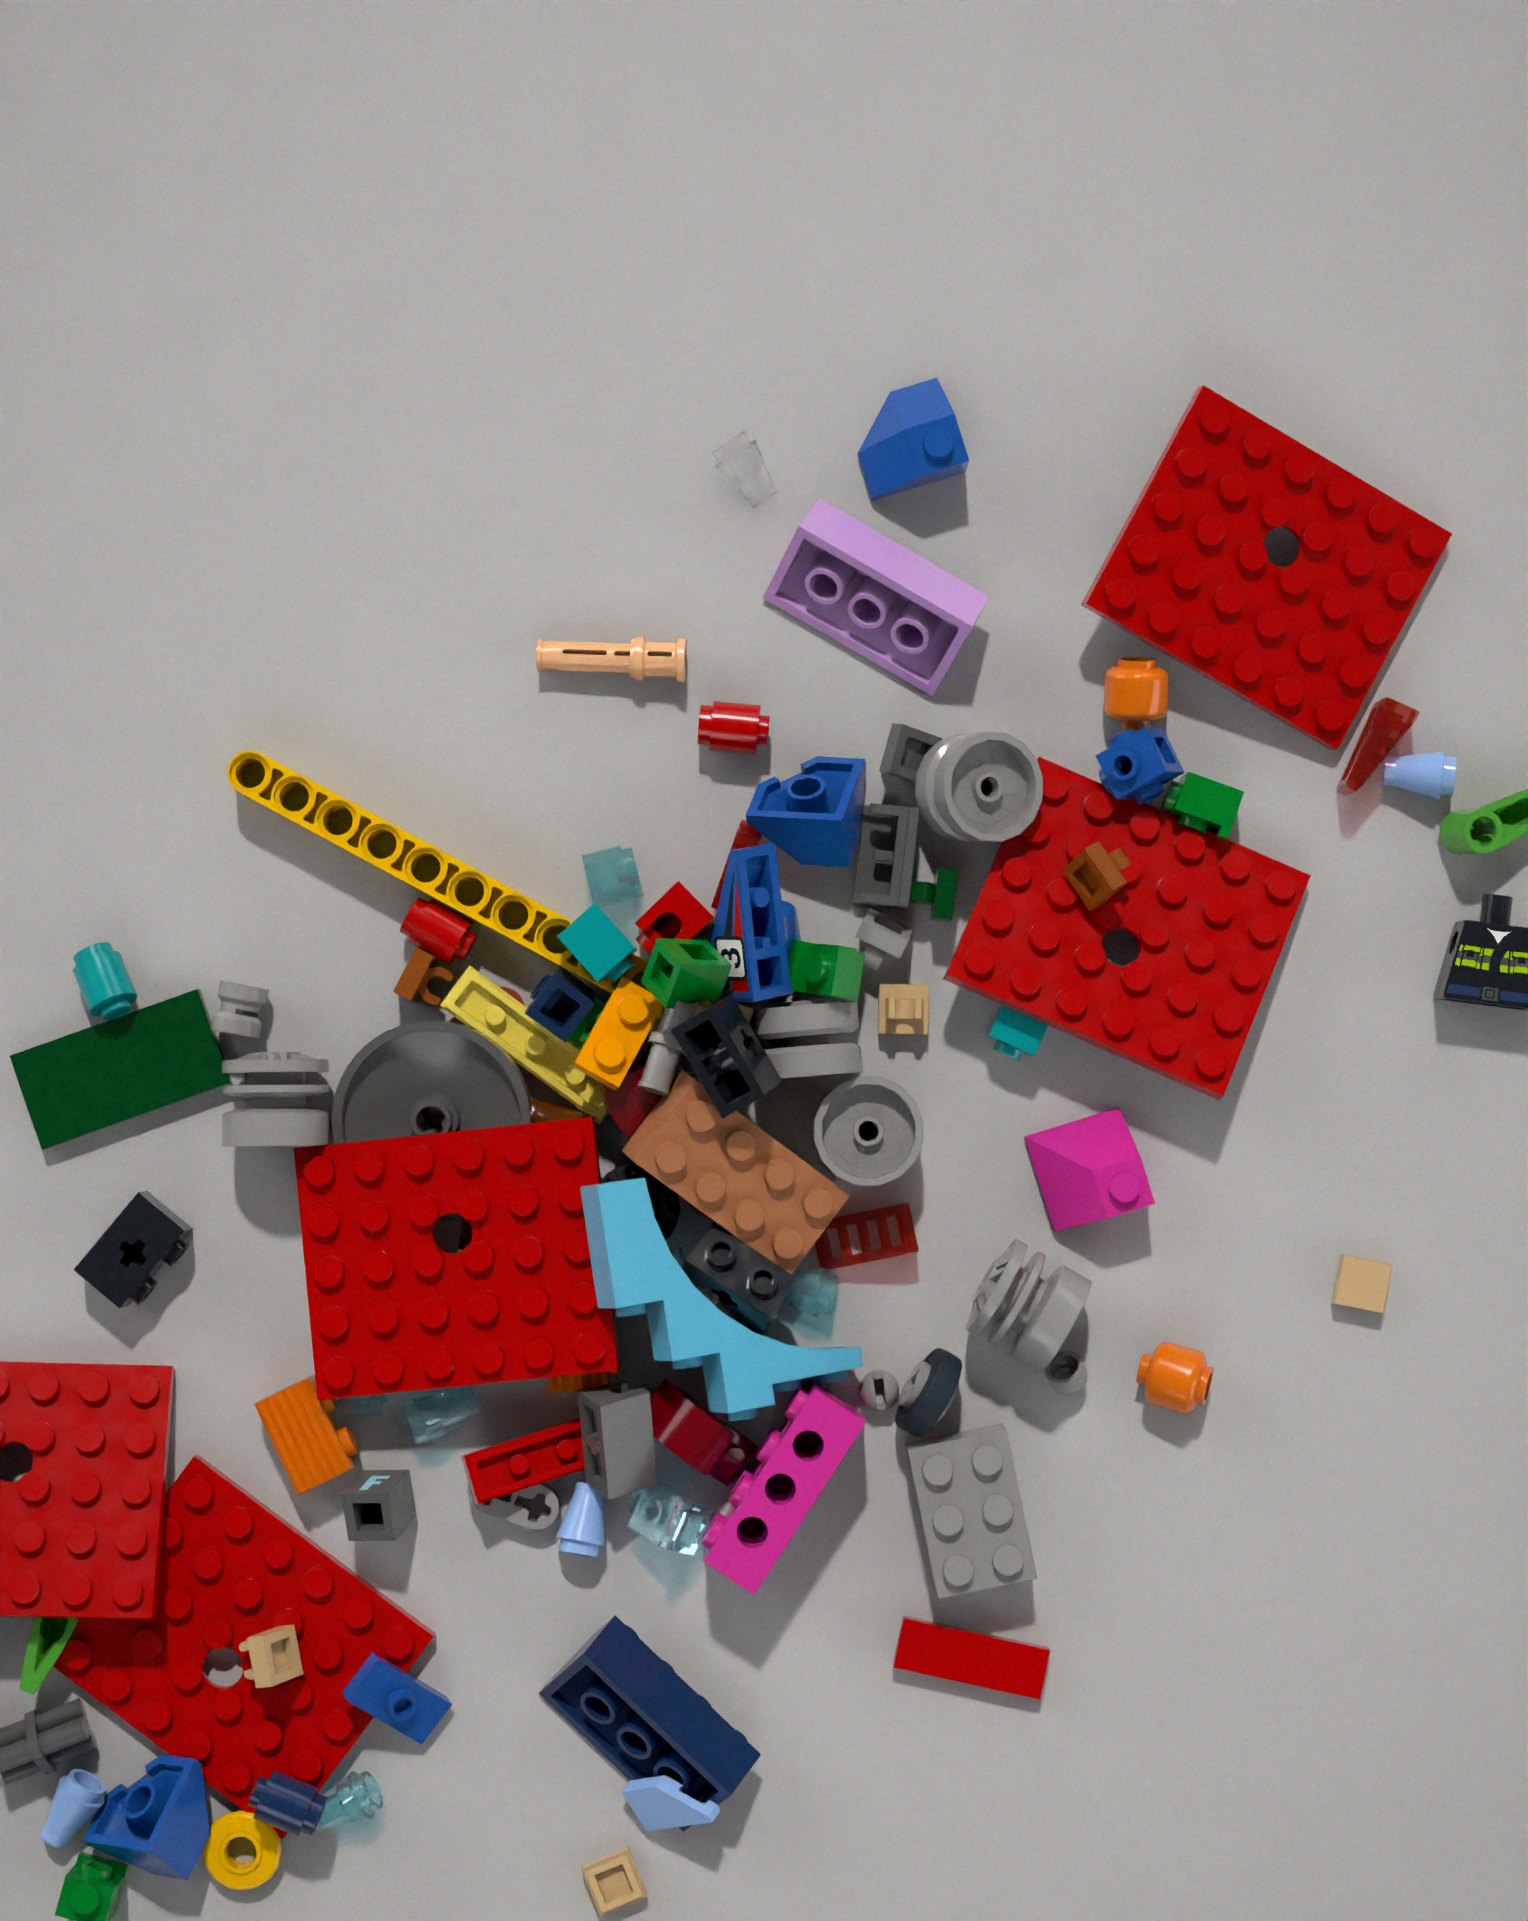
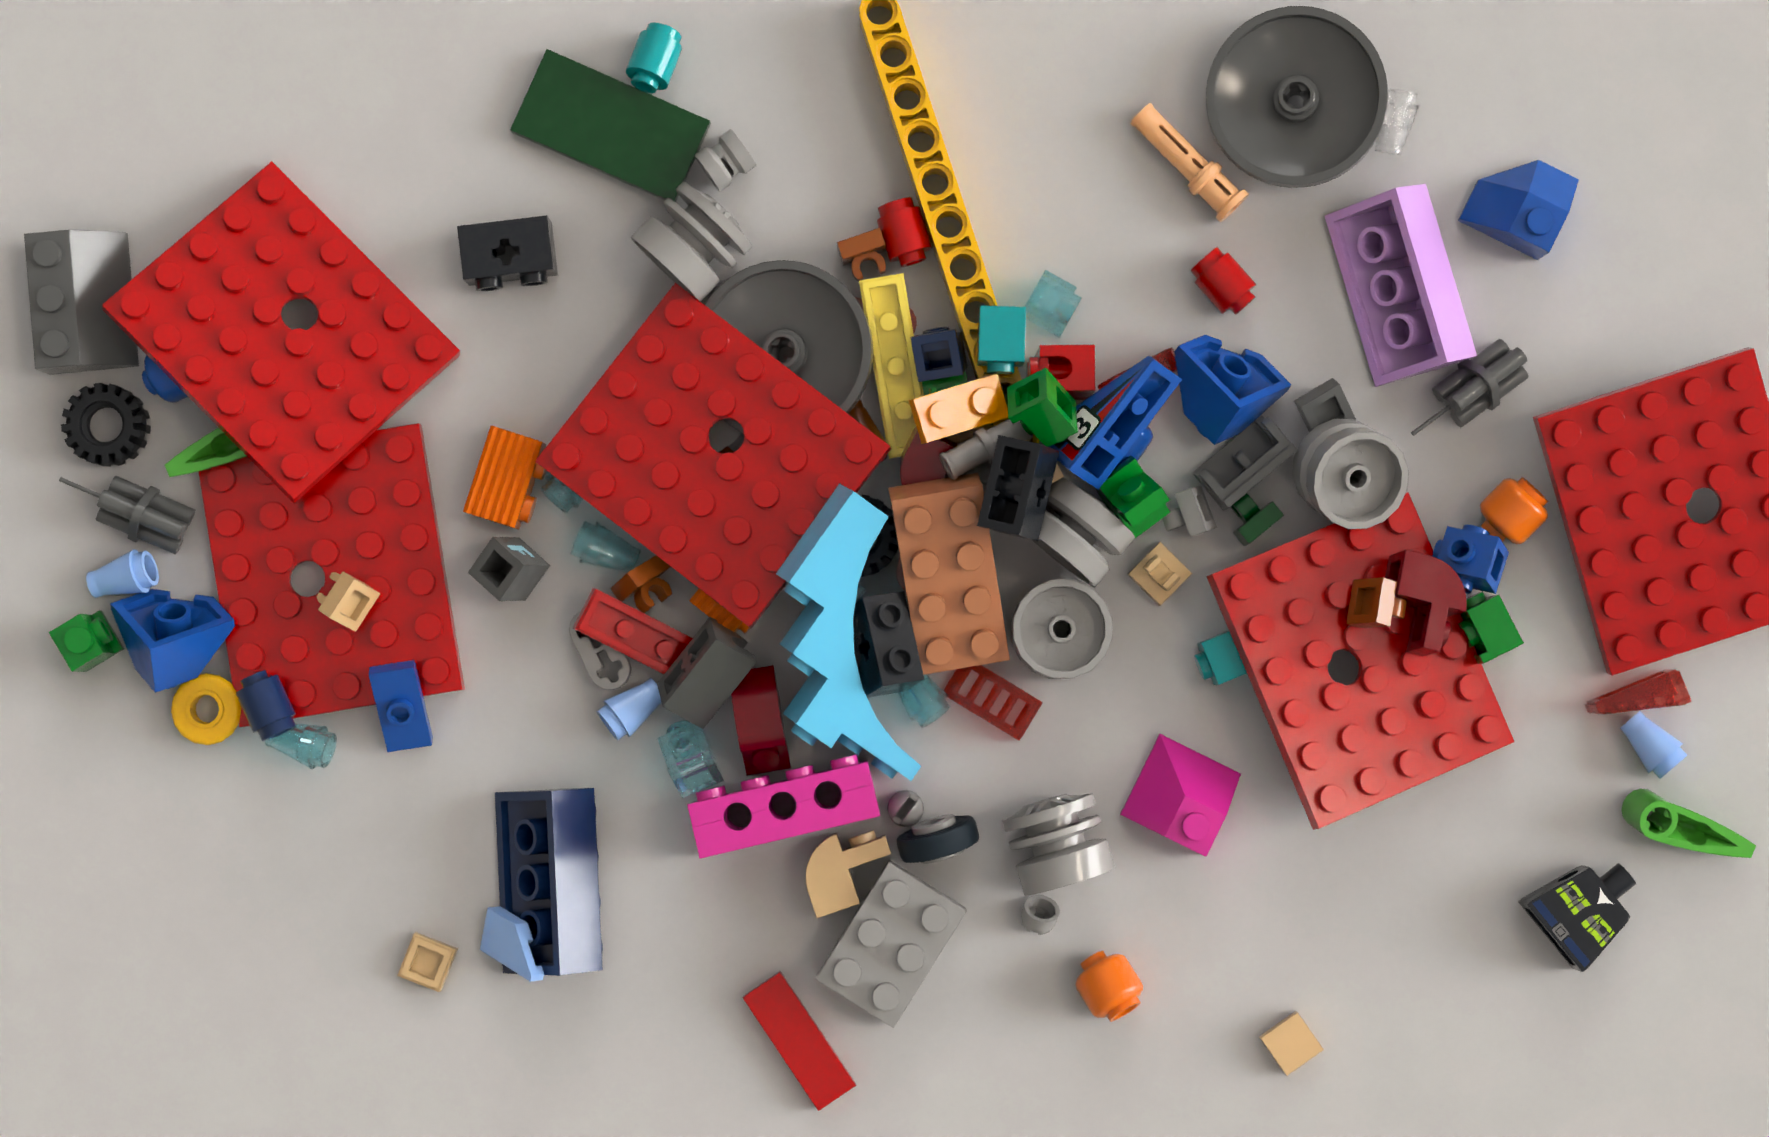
camera: 50 degrees right, 0 degrees up
(495, 1411) = (640, 581): none -> dark orange tile
(613, 495) = (1303, 55): none -> dark grey dish
(867, 1501) = (829, 874): none -> tan brick
(1013, 615) = (1479, 383): none -> dark grey piece
(1135, 820) = (1434, 594): none -> dark red brick

